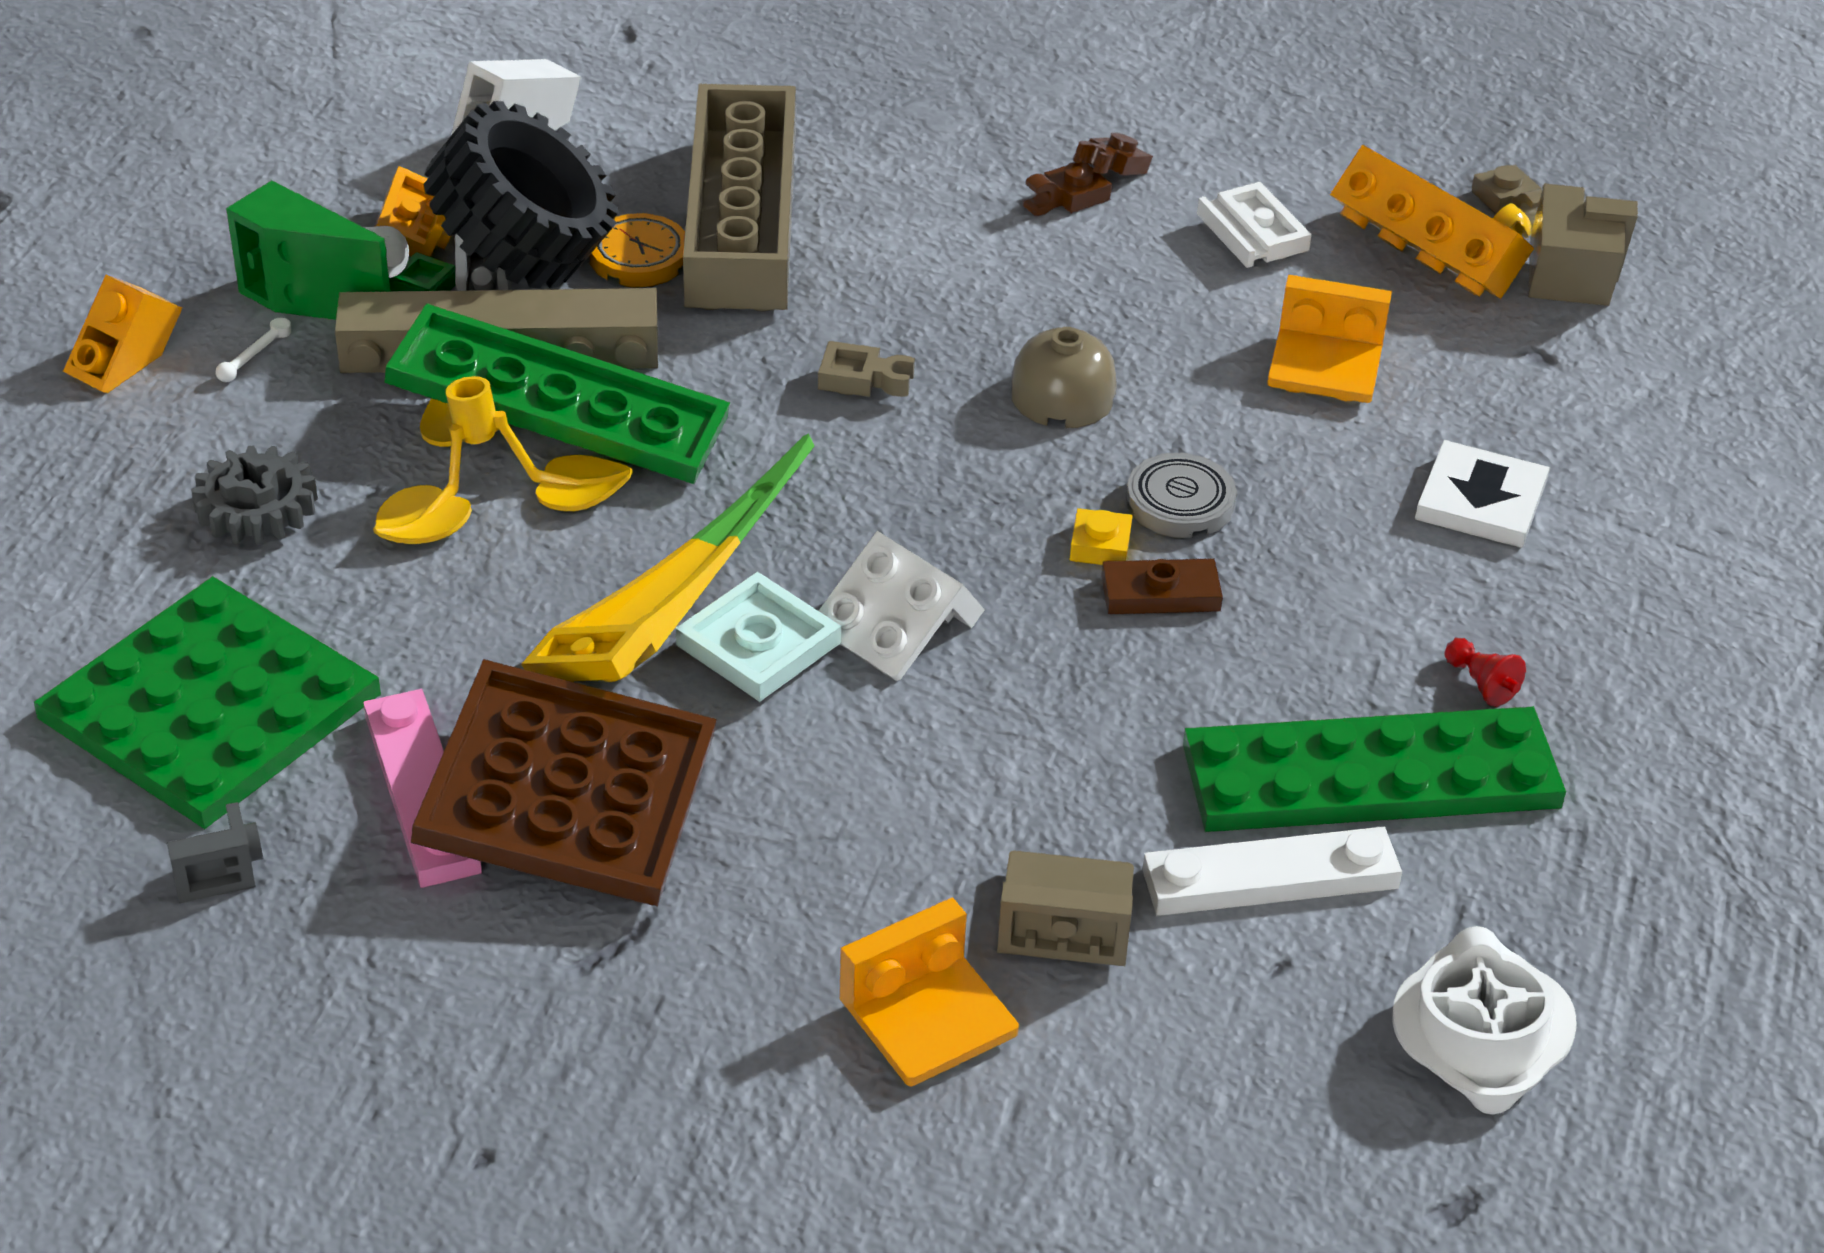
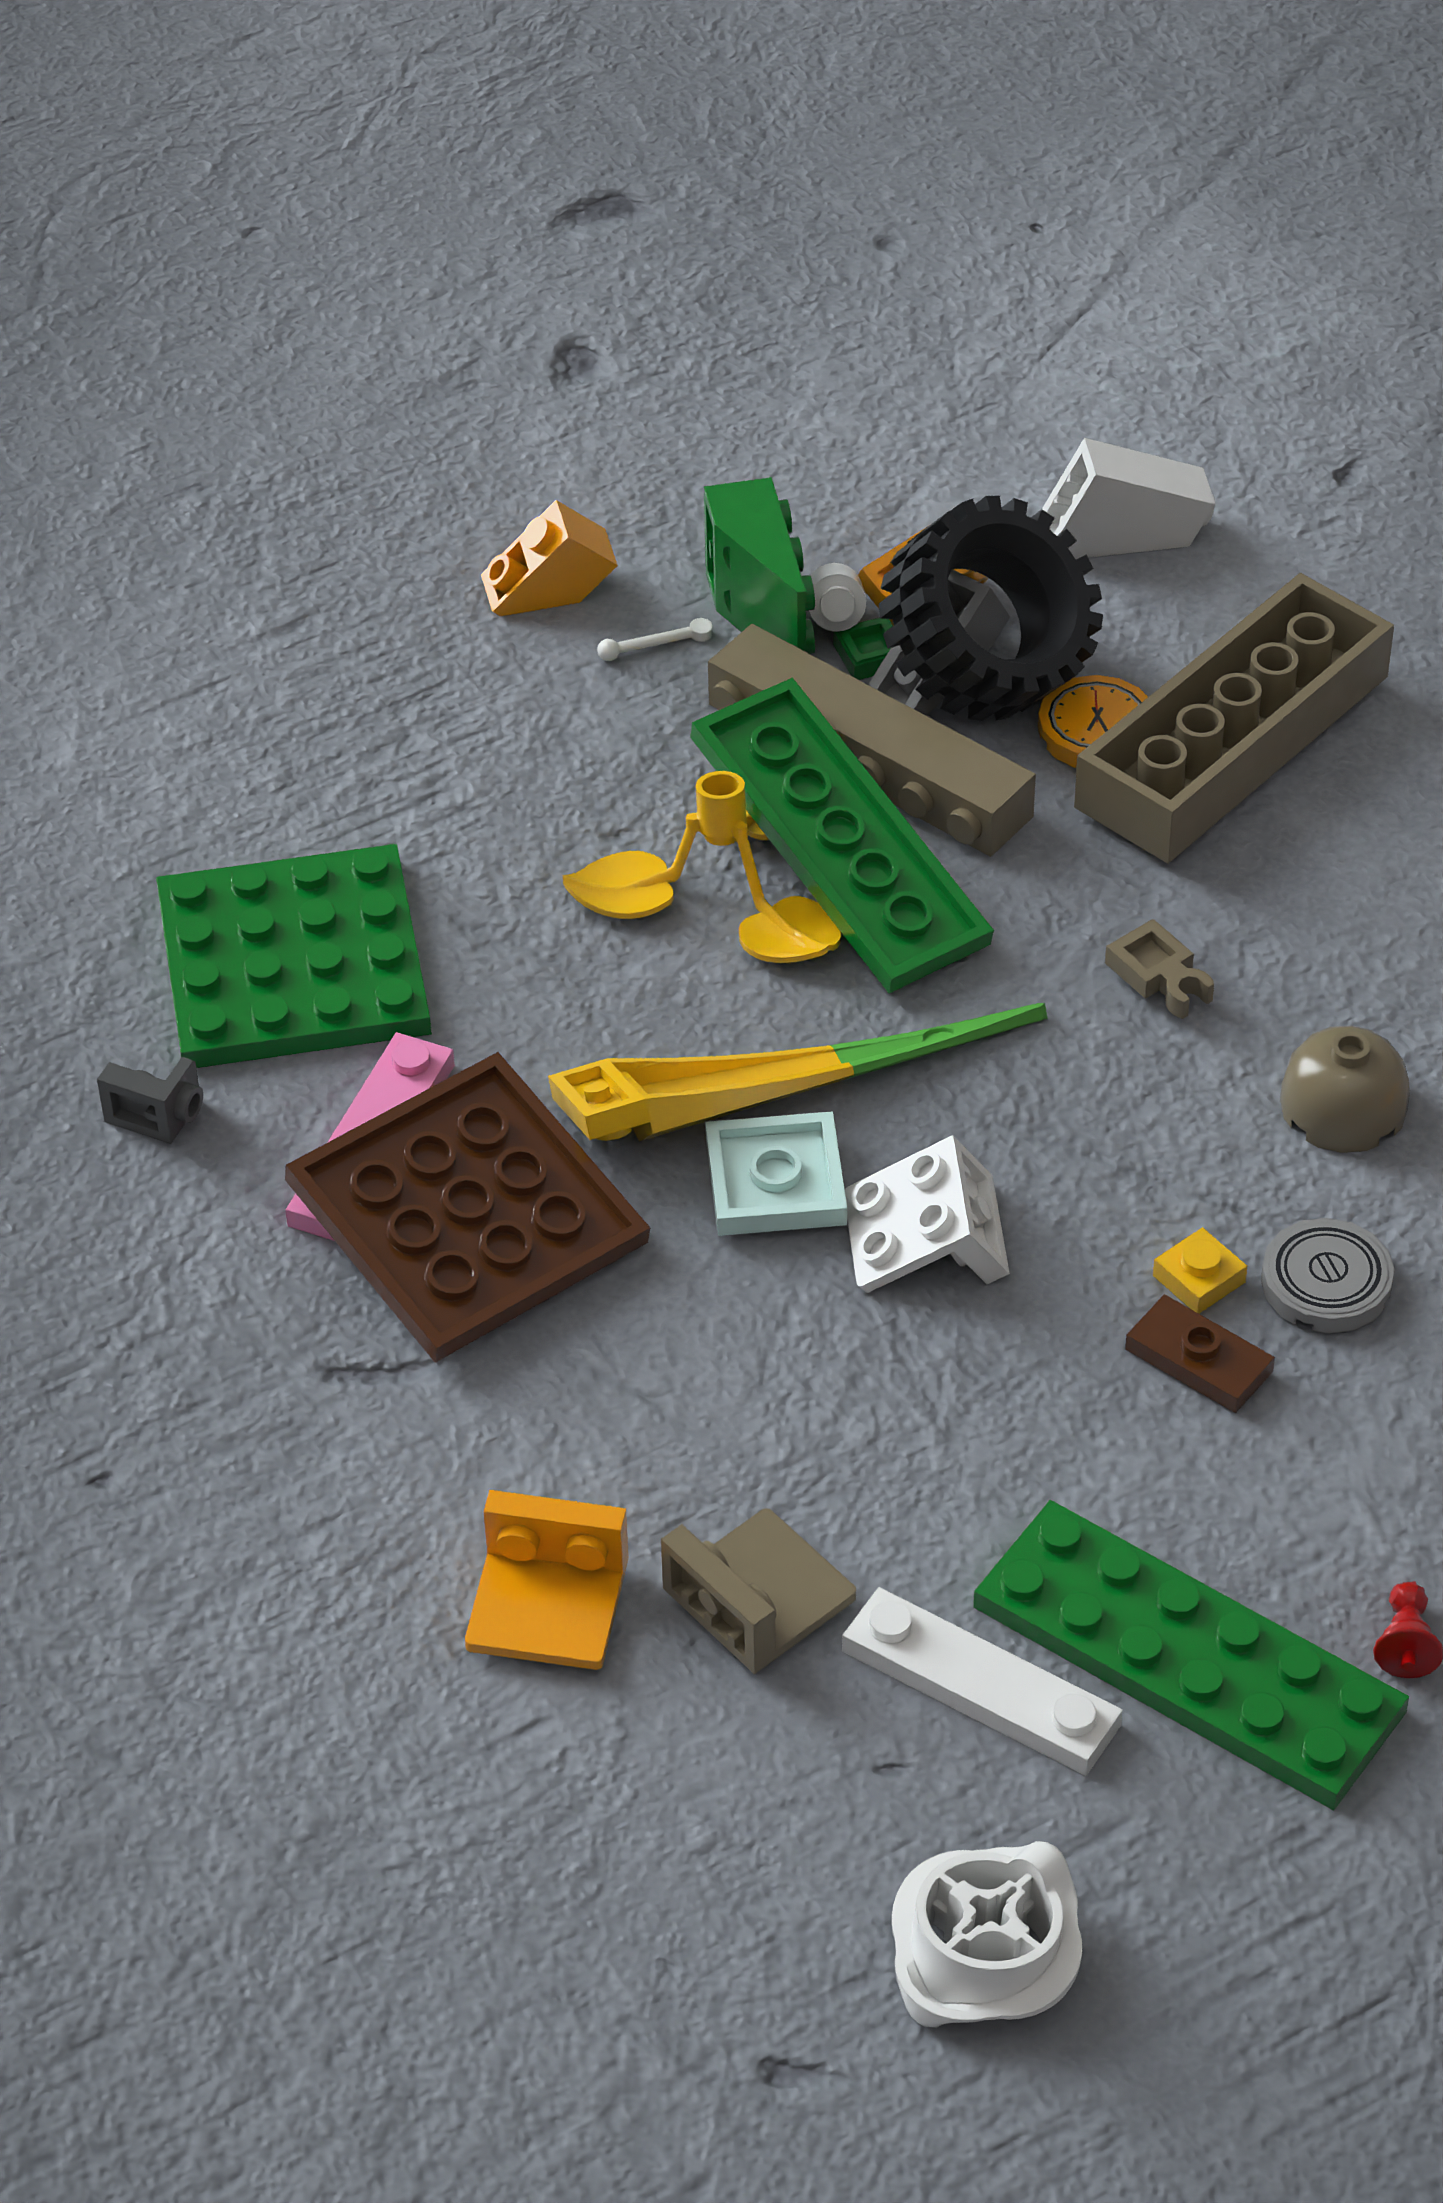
camera: 45 degrees right, 5 degrees up
(254, 494) = (502, 785): dark grey gear -> none

